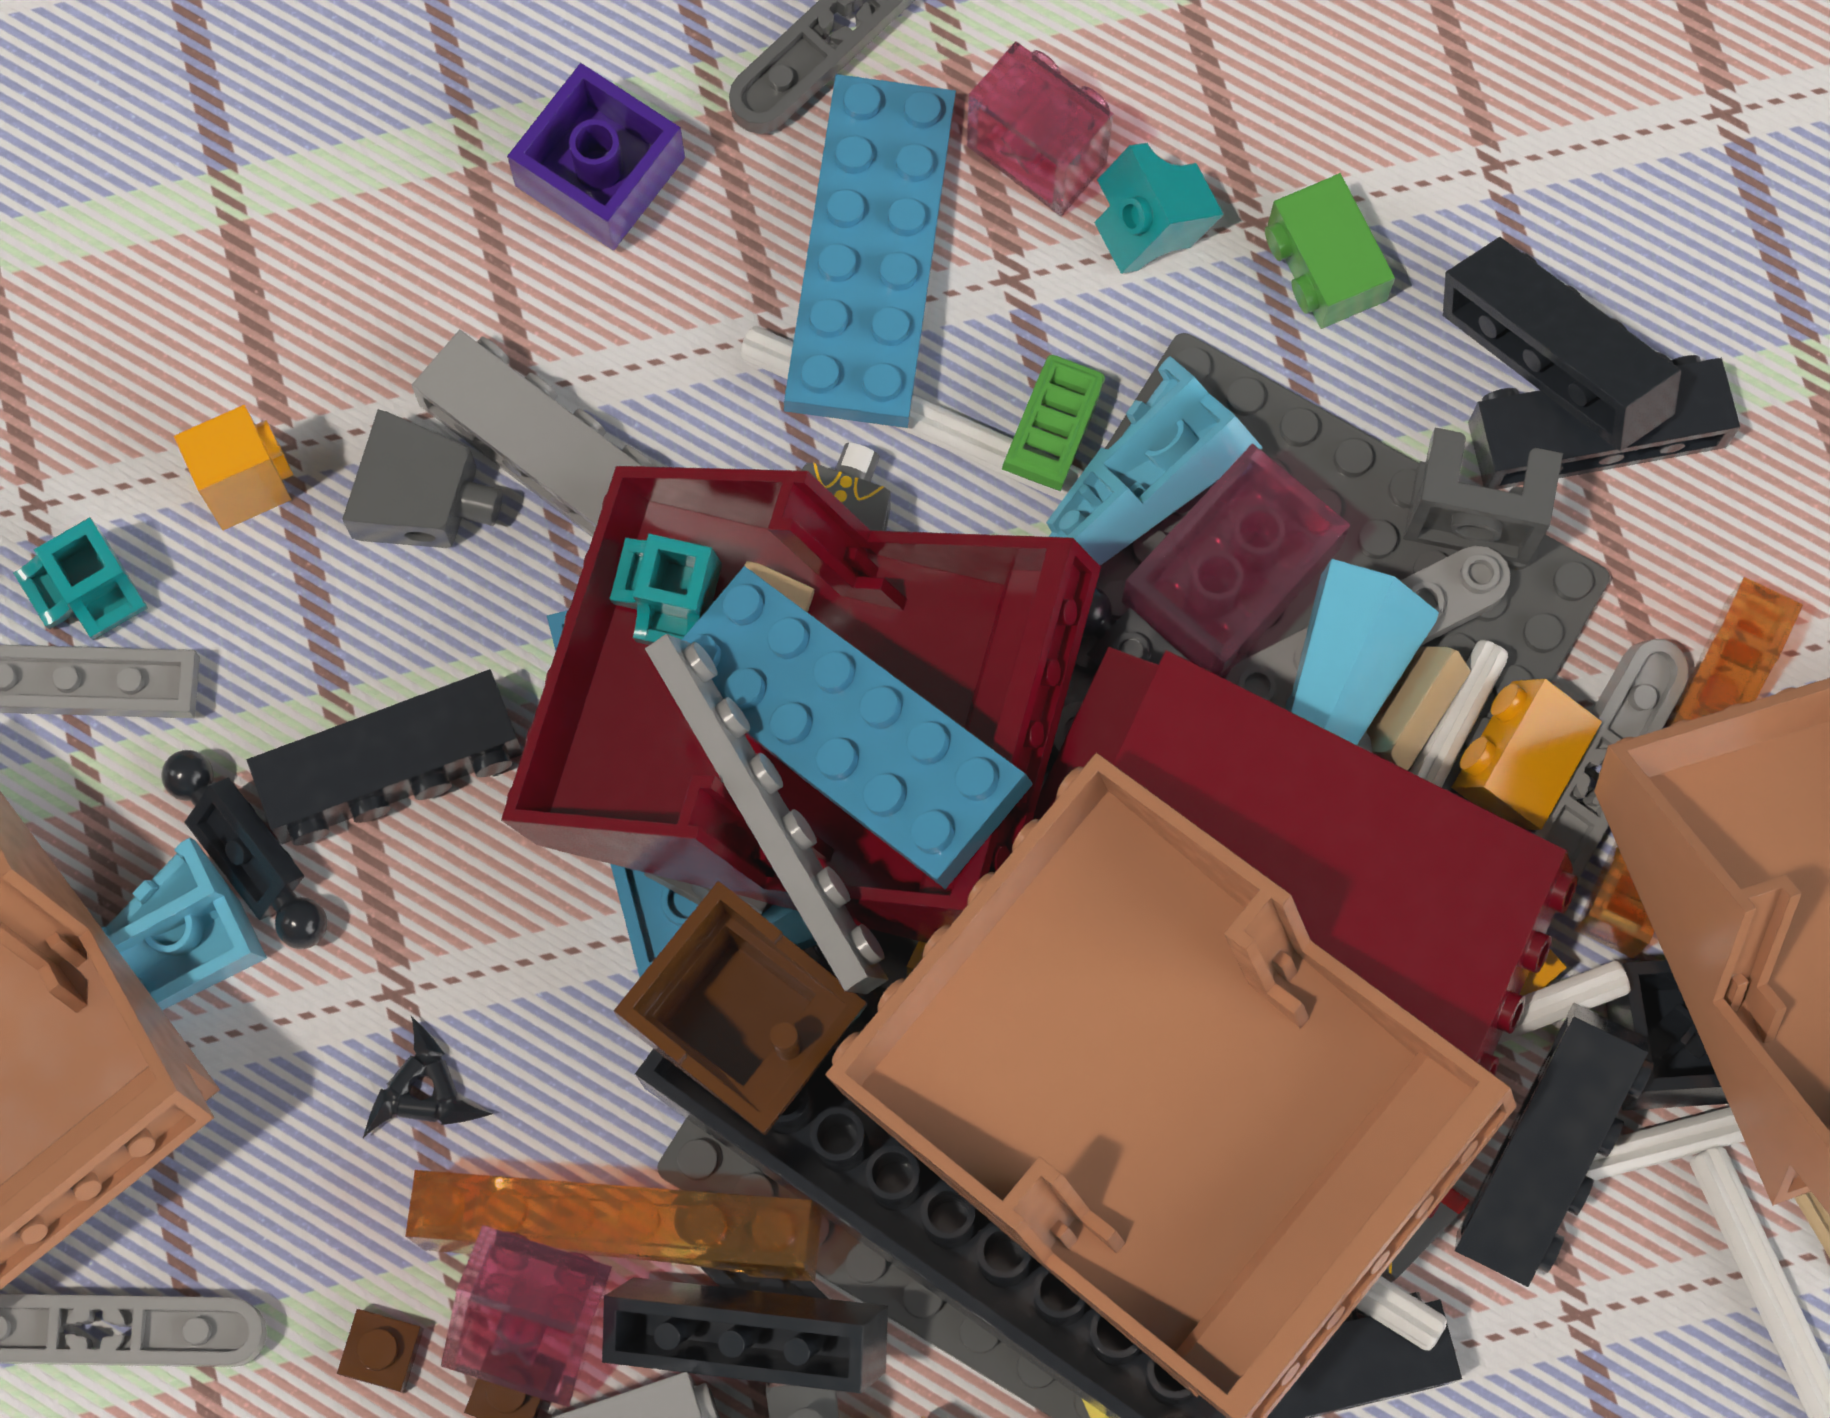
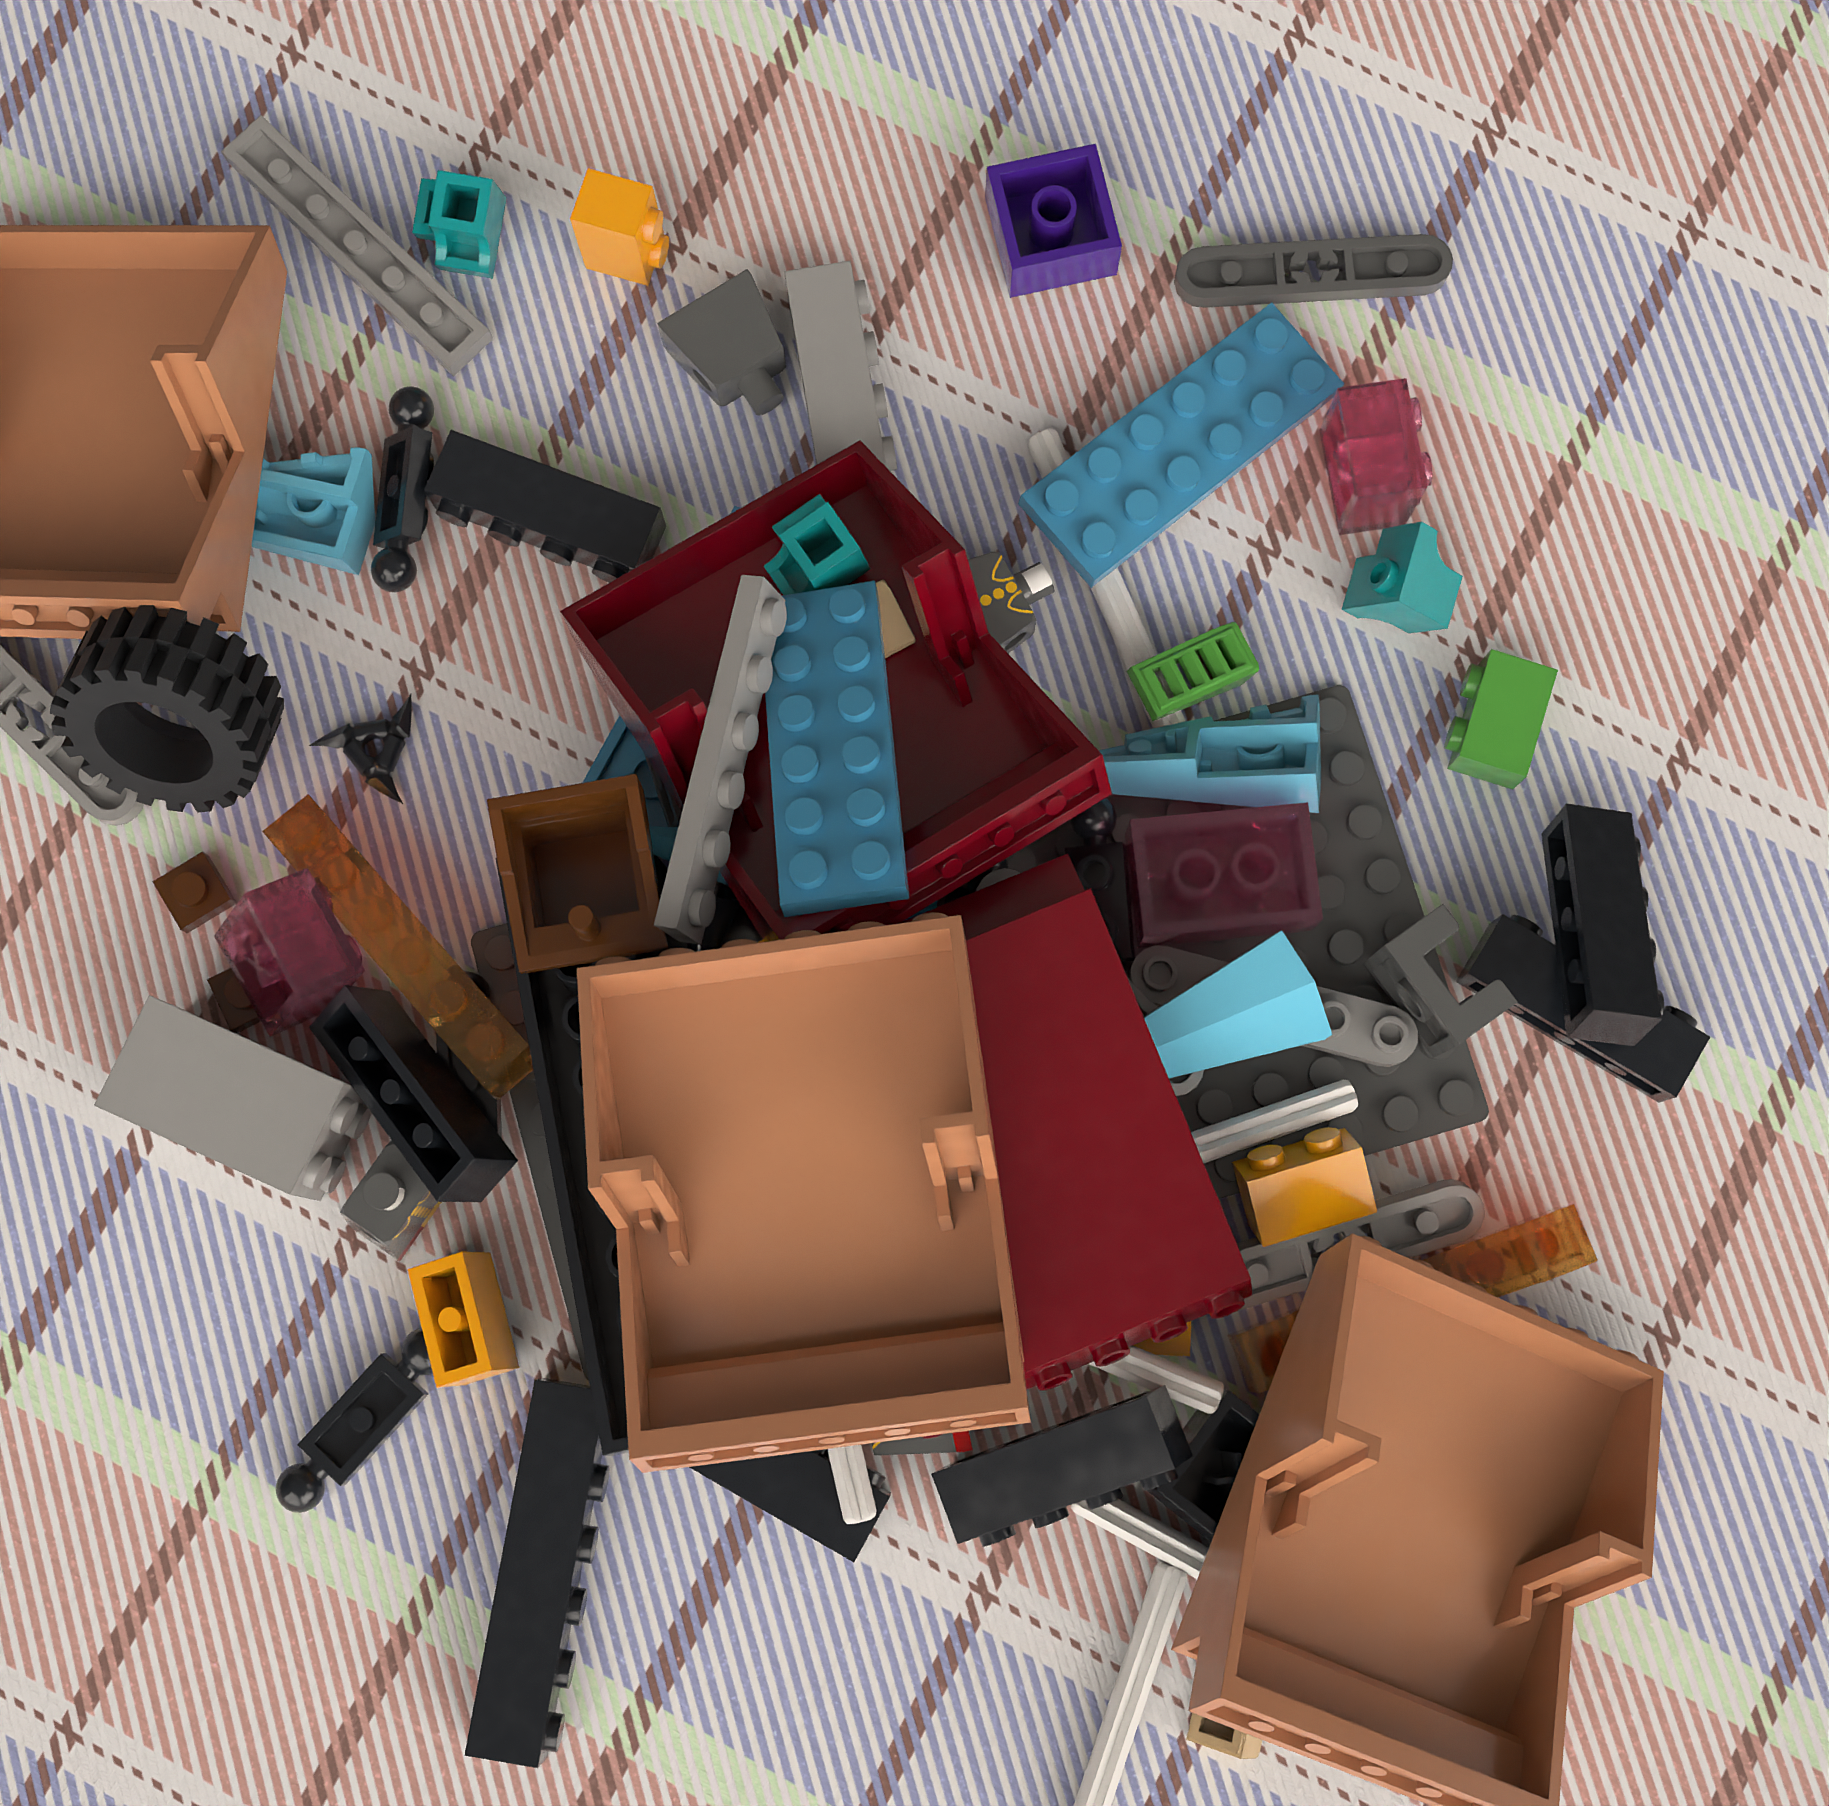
camera: 45 degrees right, 5 degrees up
(210, 1158) = (179, 670): none -> black tyre
(1417, 704) = (1255, 1084): tan slope -> none

